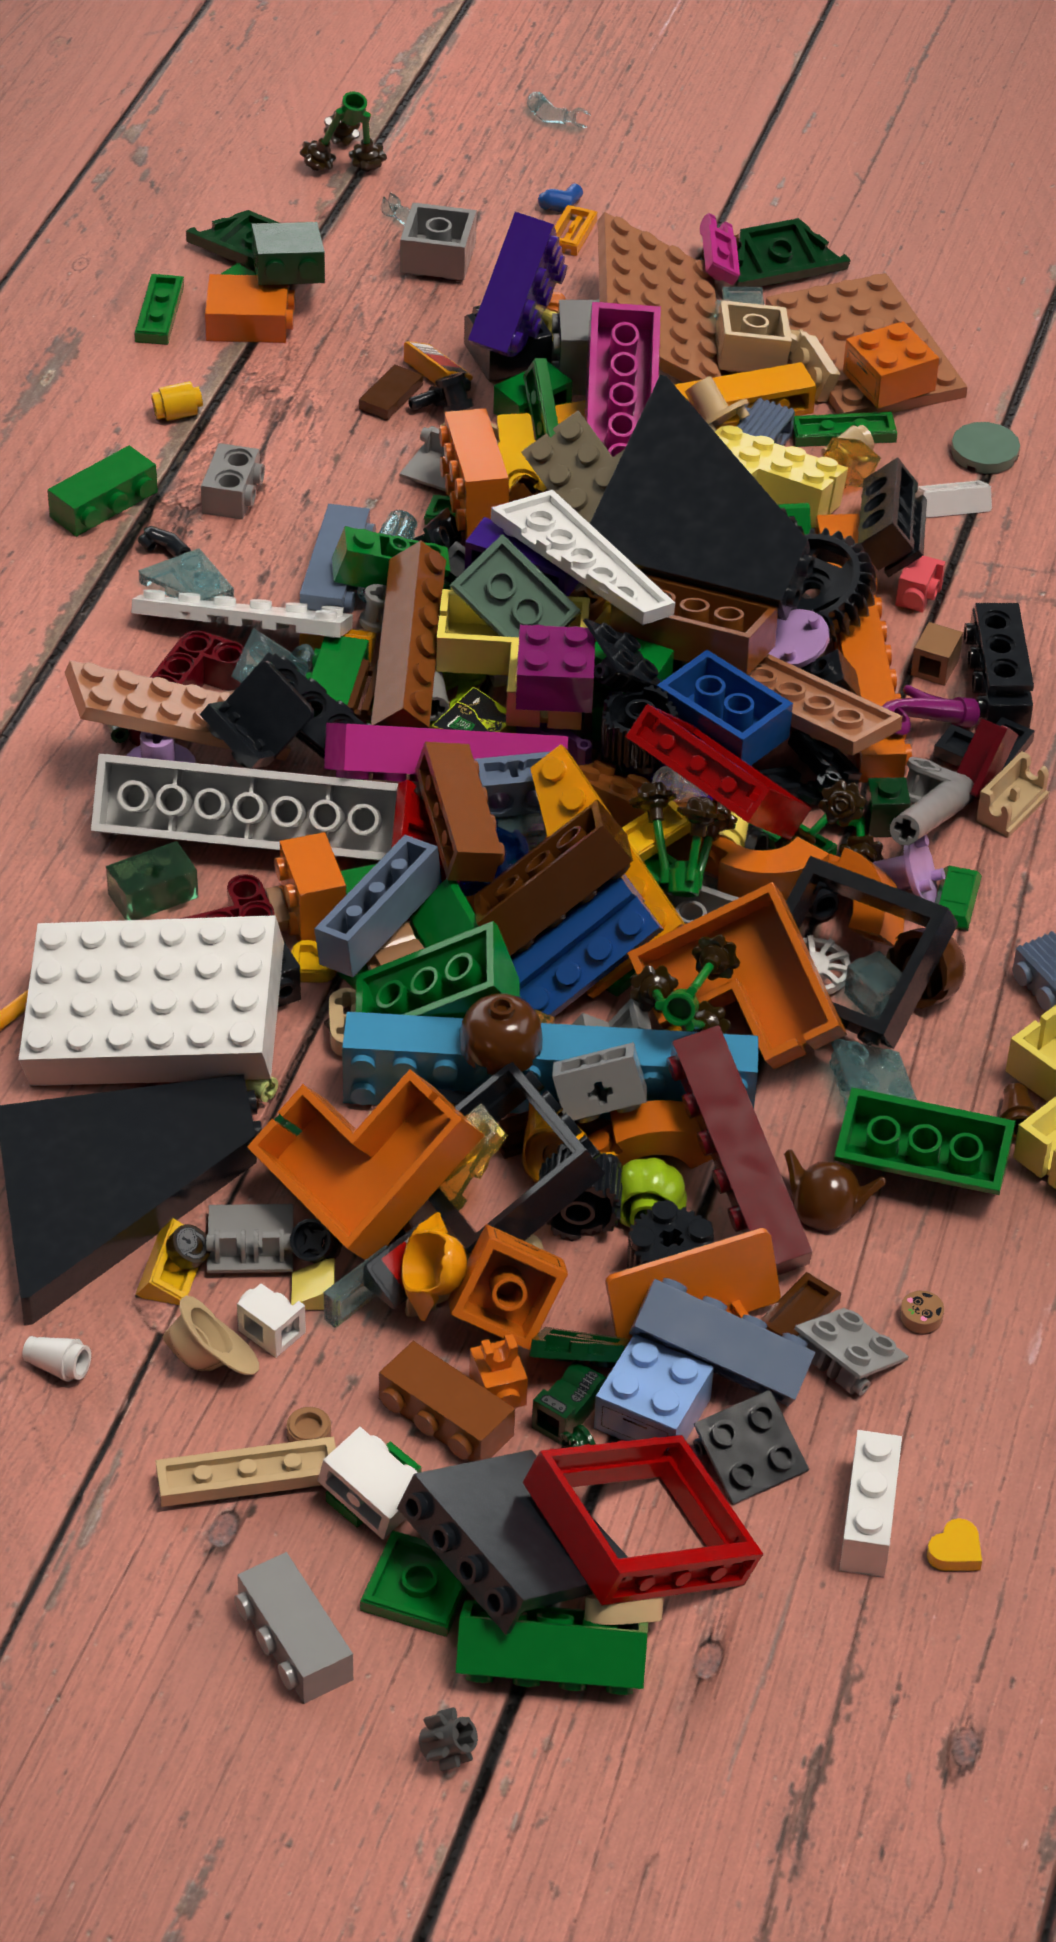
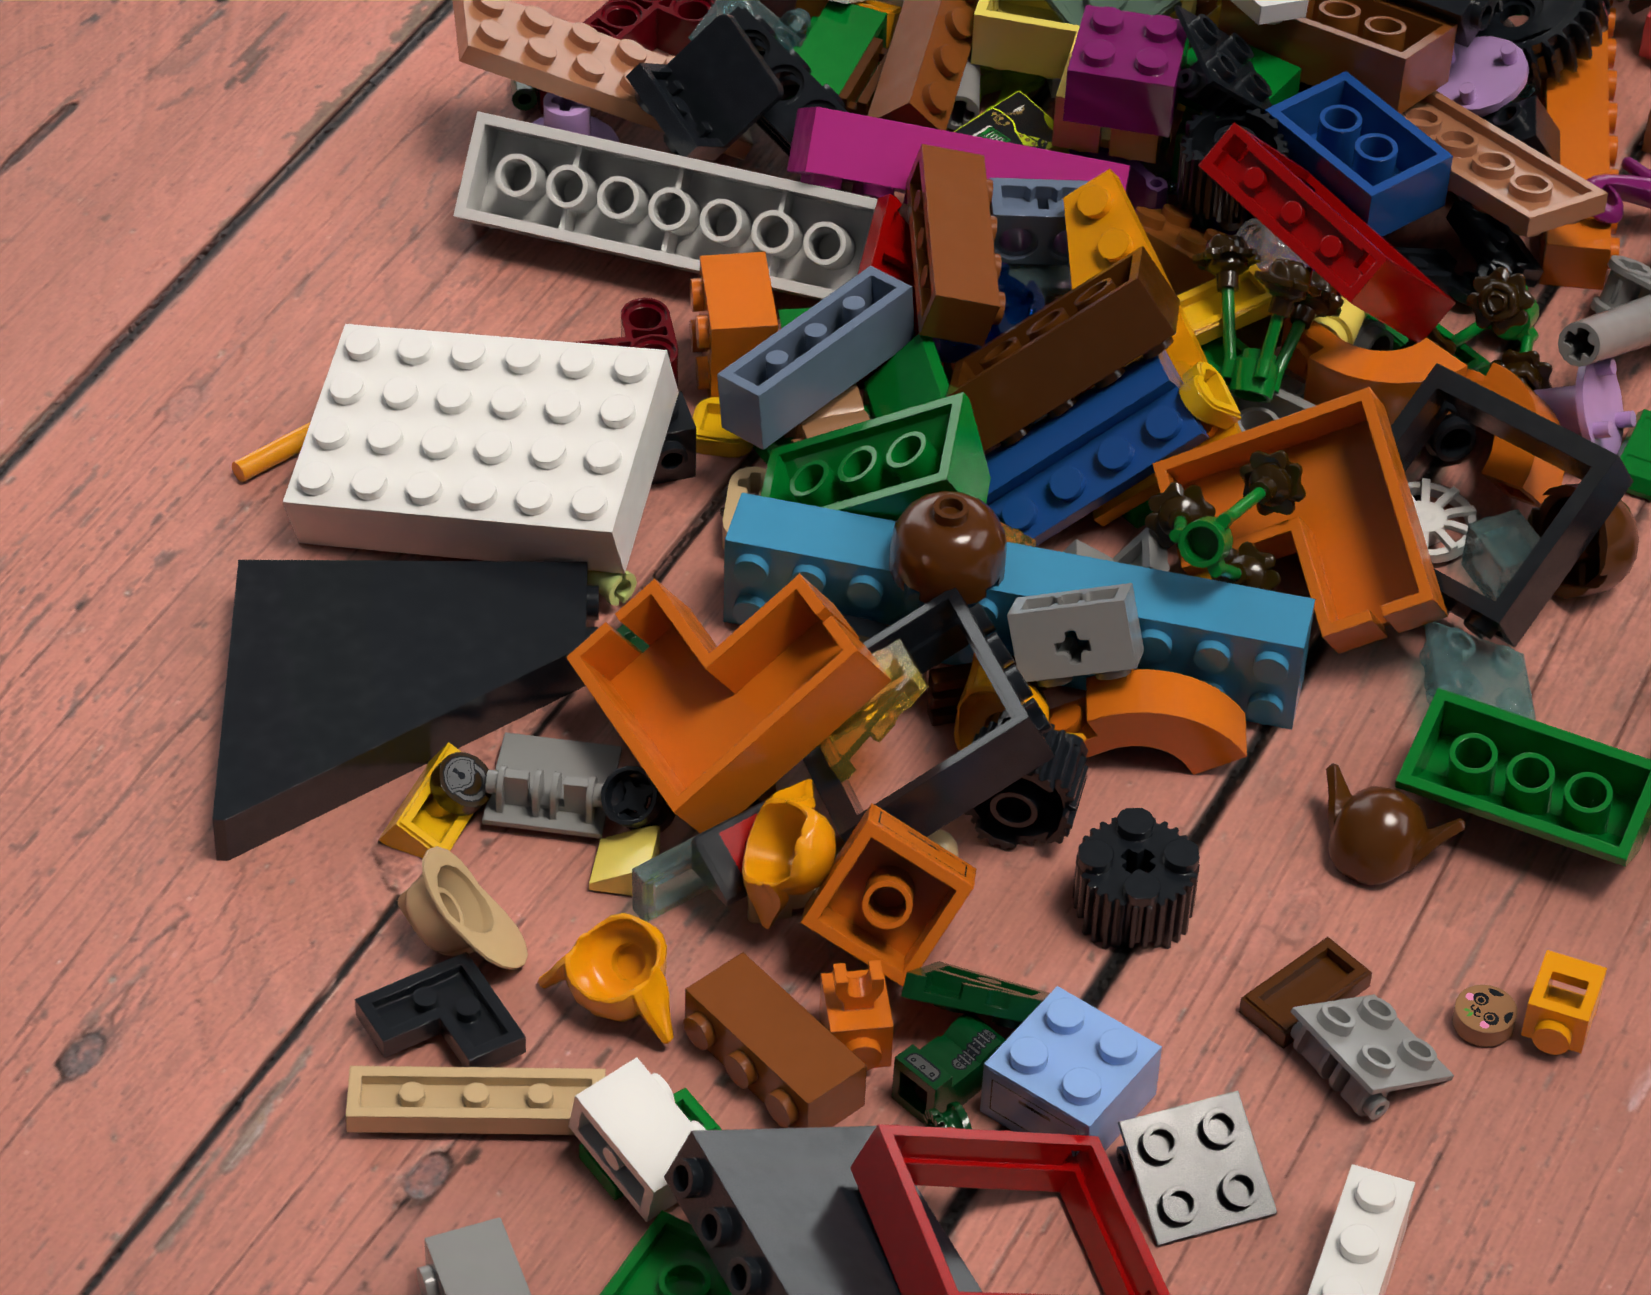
camera: 10 degrees right, 0 degrees up
(58, 1356) = (251, 907): white cone -> none
(152, 881) = (524, 293): clear green brick -> none
(212, 1404) = (445, 1001): none -> black plate
(270, 1319) = (554, 897): white brick -> none
(278, 902) = (688, 355): medium nougat tile -> none
(308, 1424) = (576, 1048): medium nougat tile -> none
(328, 1367) = (619, 973): none -> light orange piece
(647, 1183) = (1120, 781): lime plant -> none
(658, 900) = (1208, 396): none -> yellow tile
(732, 1270) = (1160, 945): orange bracket -> none
(733, 1345) = (1194, 1021): sand blue brick -> none
(737, 1145) = (1258, 758): dark red brick -> none
(884, 802) = (1564, 303): dark green brick -> none
(972, 1305) = (1558, 1017): none -> light orange brick

